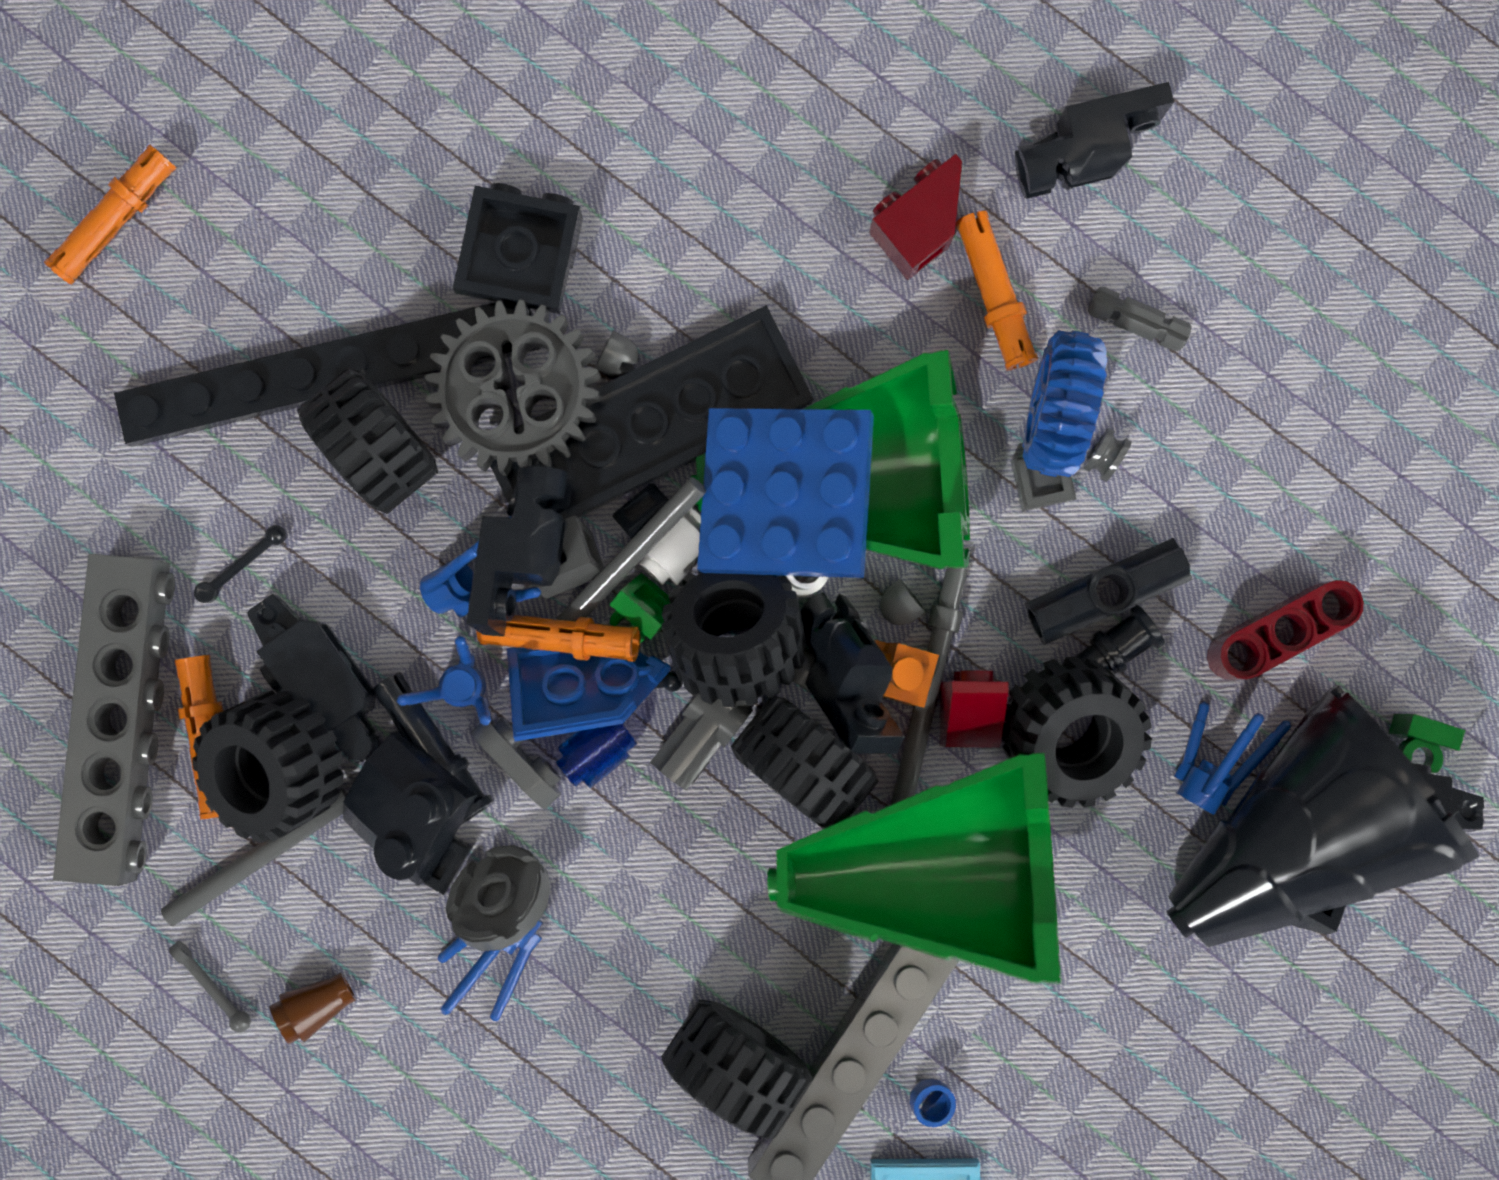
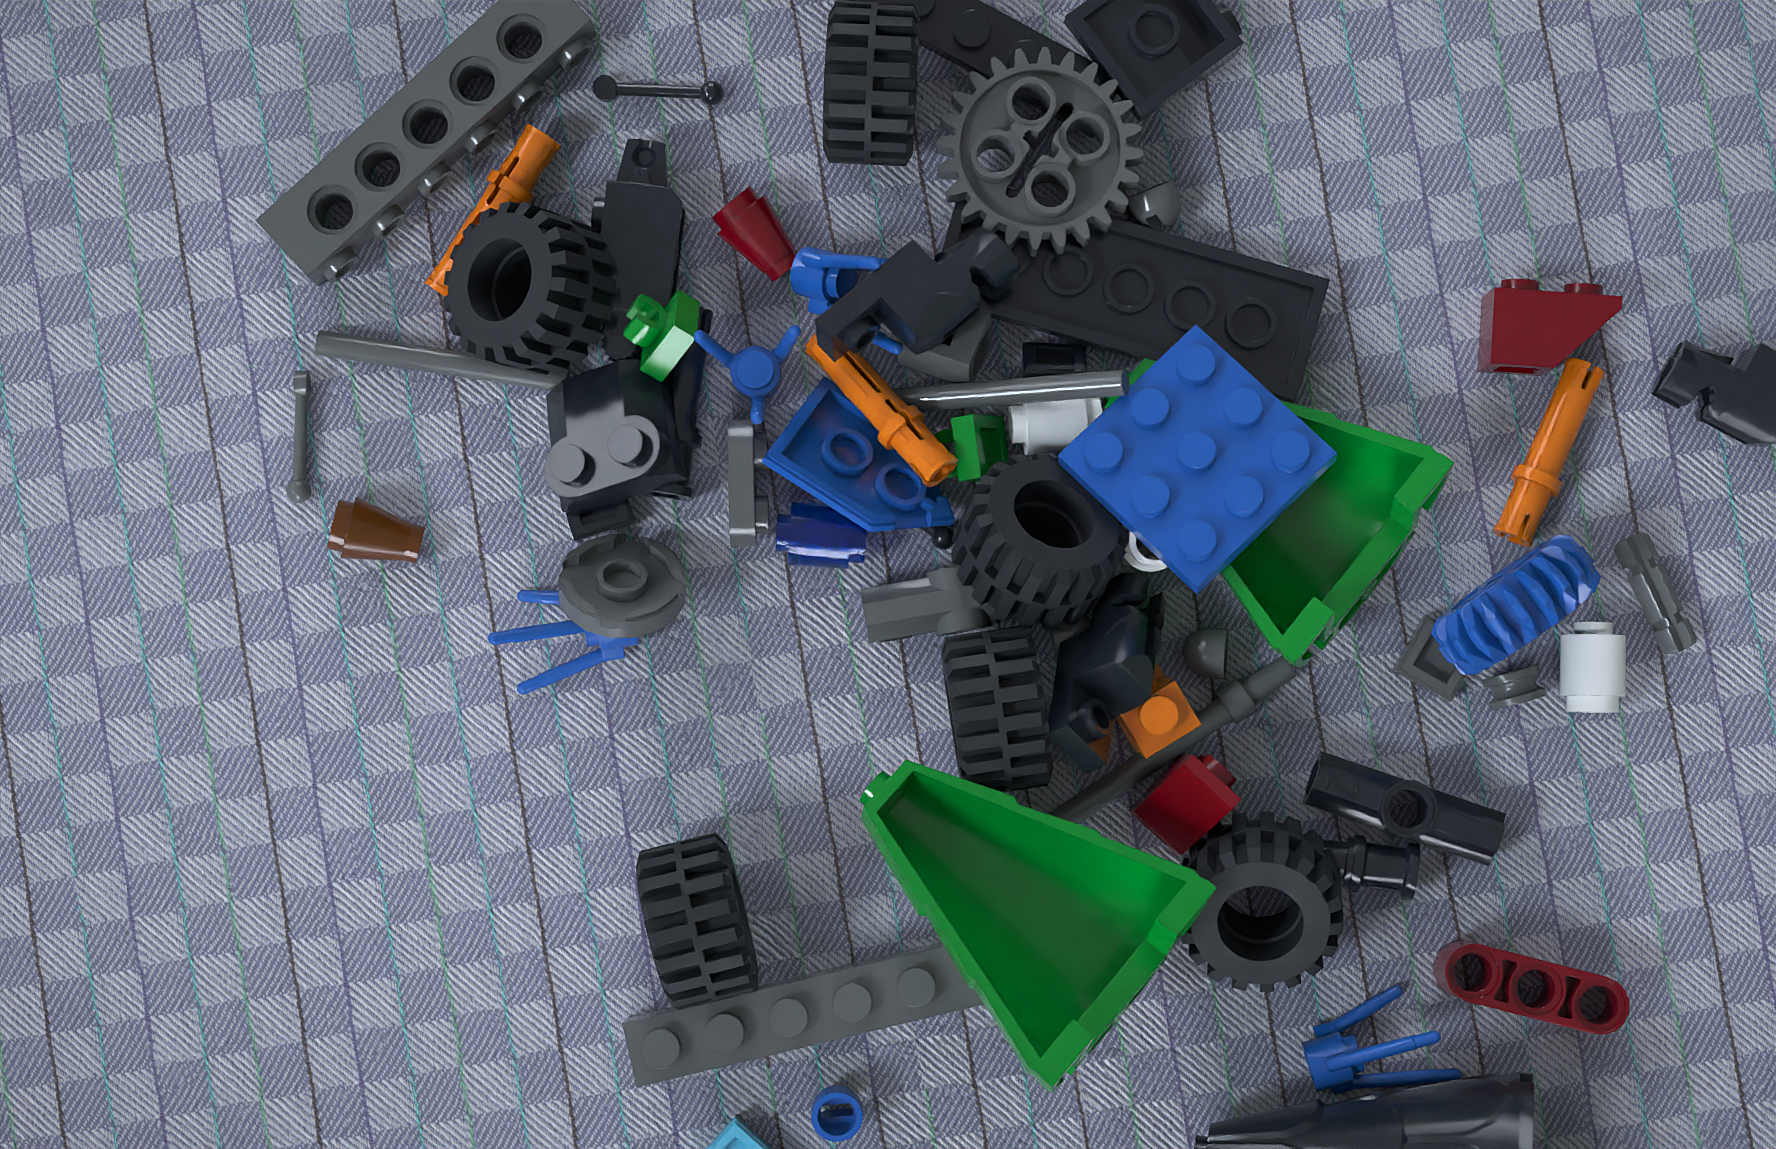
camera: 45 degrees right, 0 degrees up
(377, 716) = (662, 331): none -> green tile
(382, 598) = (756, 233): none -> dark red cone
(1144, 399) = (1592, 668): none -> white brick

